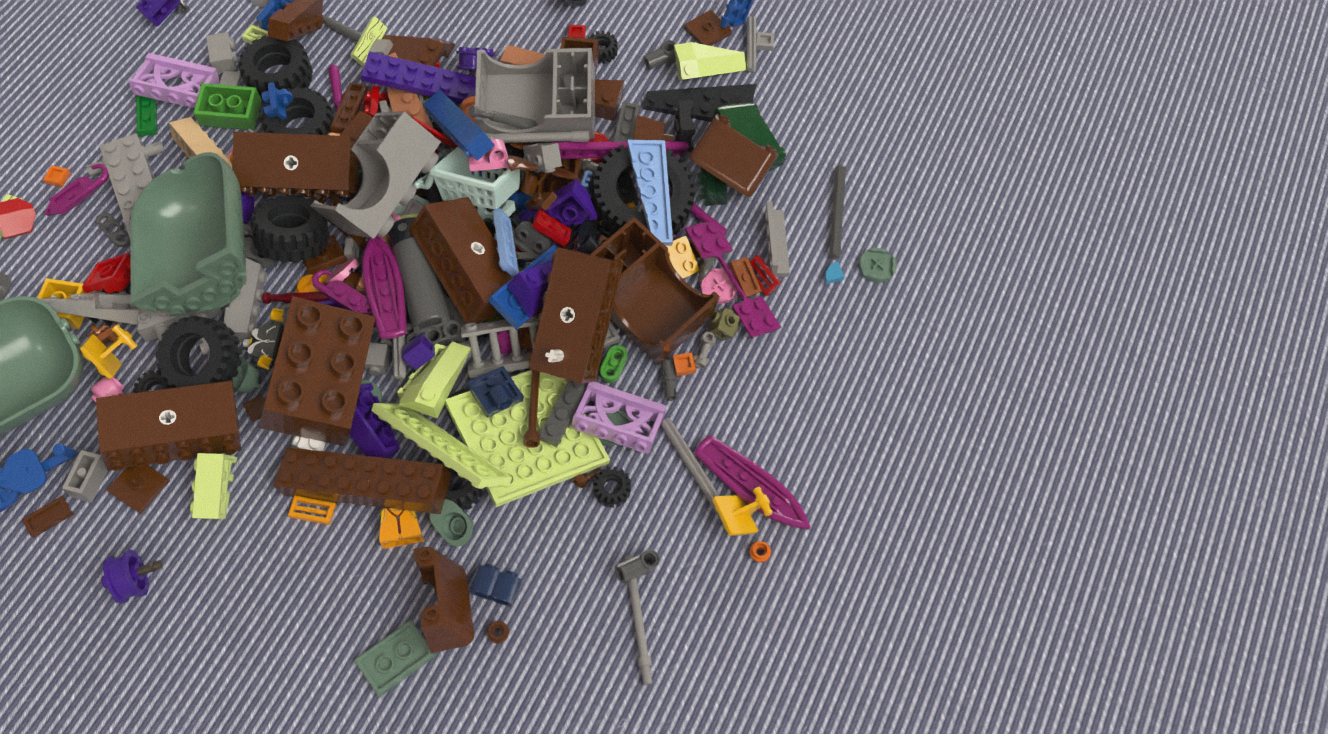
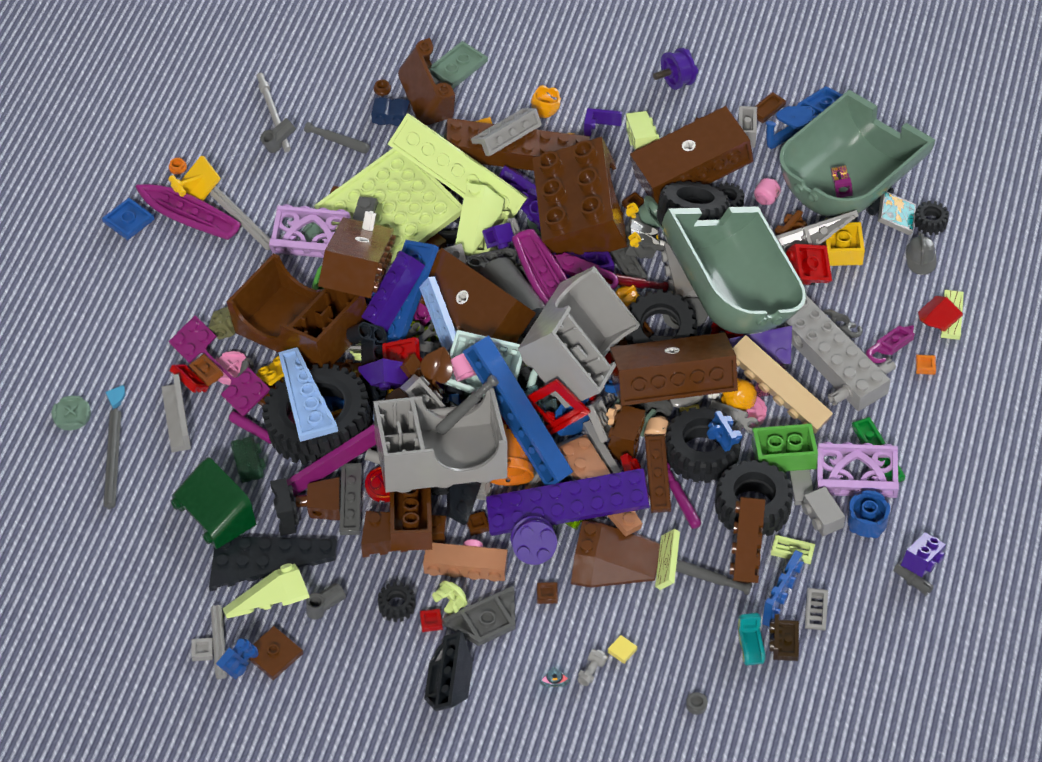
camera: 175 degrees right, 10 degrees down
(21, 379) = (841, 179): none -> magenta leg
(102, 356) = (779, 201): yellow plate -> none
(185, 42) = (868, 514): none -> blue brick
(264, 526) = (600, 116): none -> dark purple bracket
(306, 559) = (544, 103): none -> light orange hair
(362, 469) = (508, 130): none -> light grey fence
(381, 46) = (650, 551): light grey tile -> none
(476, 38) = (547, 593): none -> reddish brown tile
(495, 391) = (421, 219): dark blue plate -> none
(531, 437) = (382, 194): reddish brown piece -> none
(532, 23) = (486, 618): none -> dark grey wing
(553, 33) = (453, 593): none -> yellowish green piece
(566, 560) = (346, 141): none -> dark grey piece
(616, 498) = (308, 182): black tyre -> none
(733, 156) = (249, 460): reddish brown windscreen -> none
(819, 483) = (128, 218): none -> blue plate

